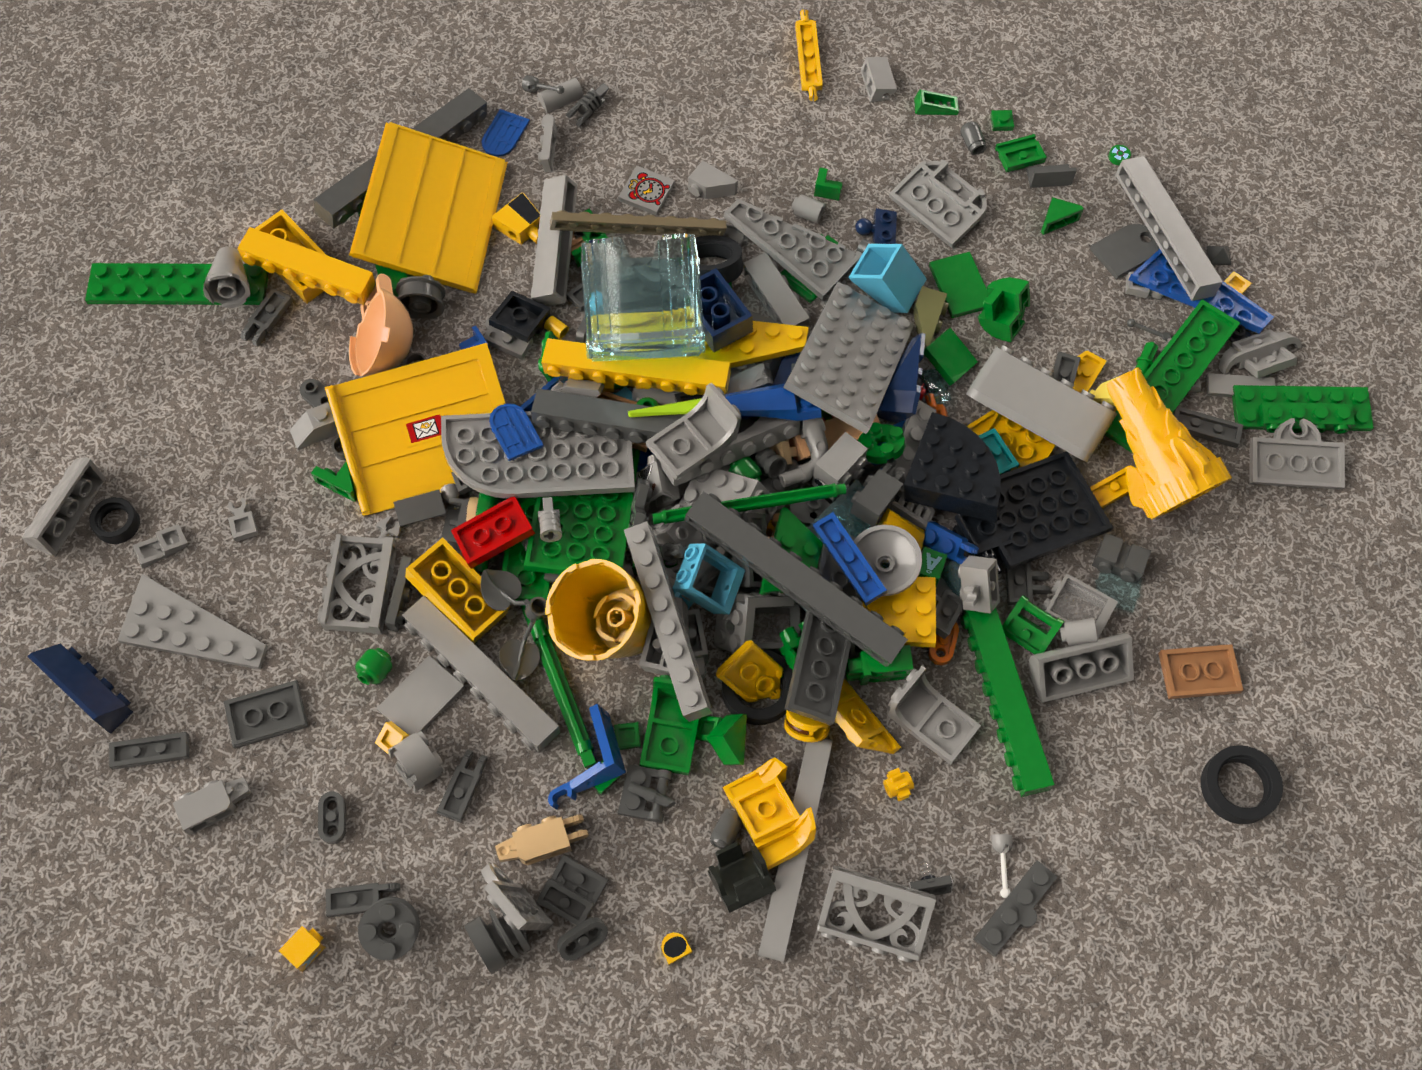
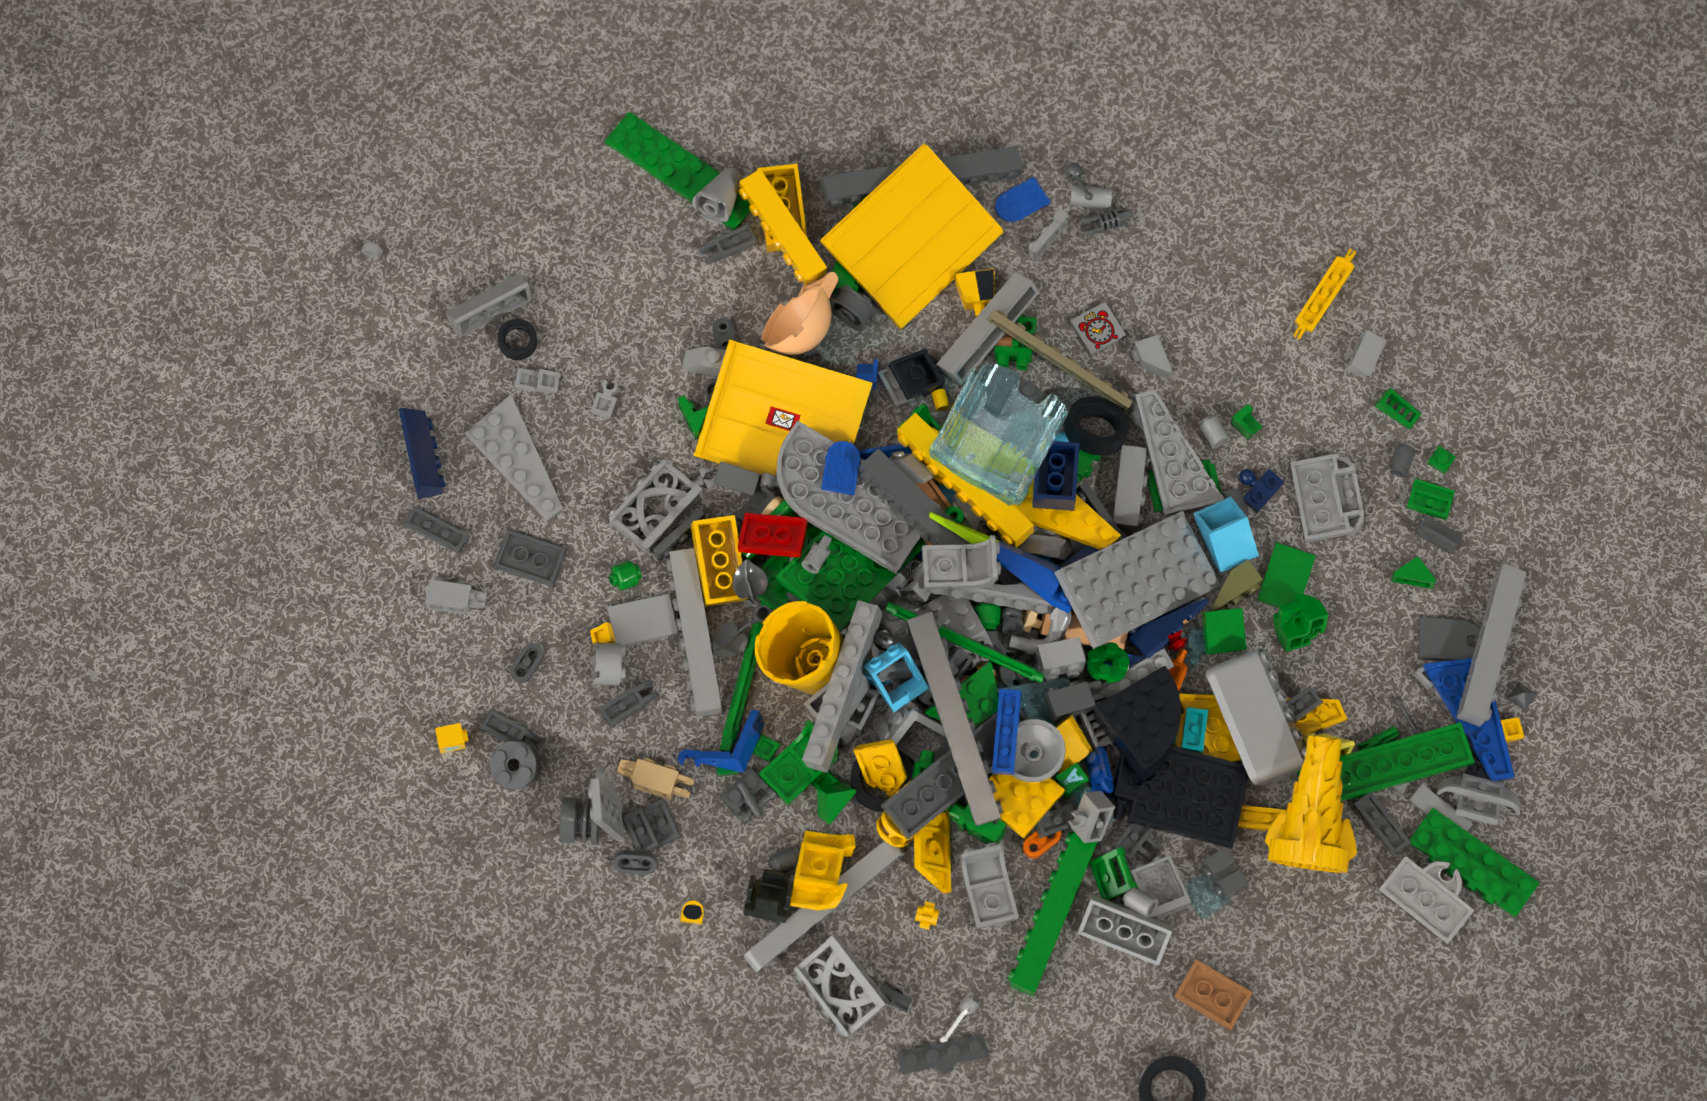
camera: 35 degrees right, 5 degrees up
(1119, 153) = (1514, 556): green tile -> none

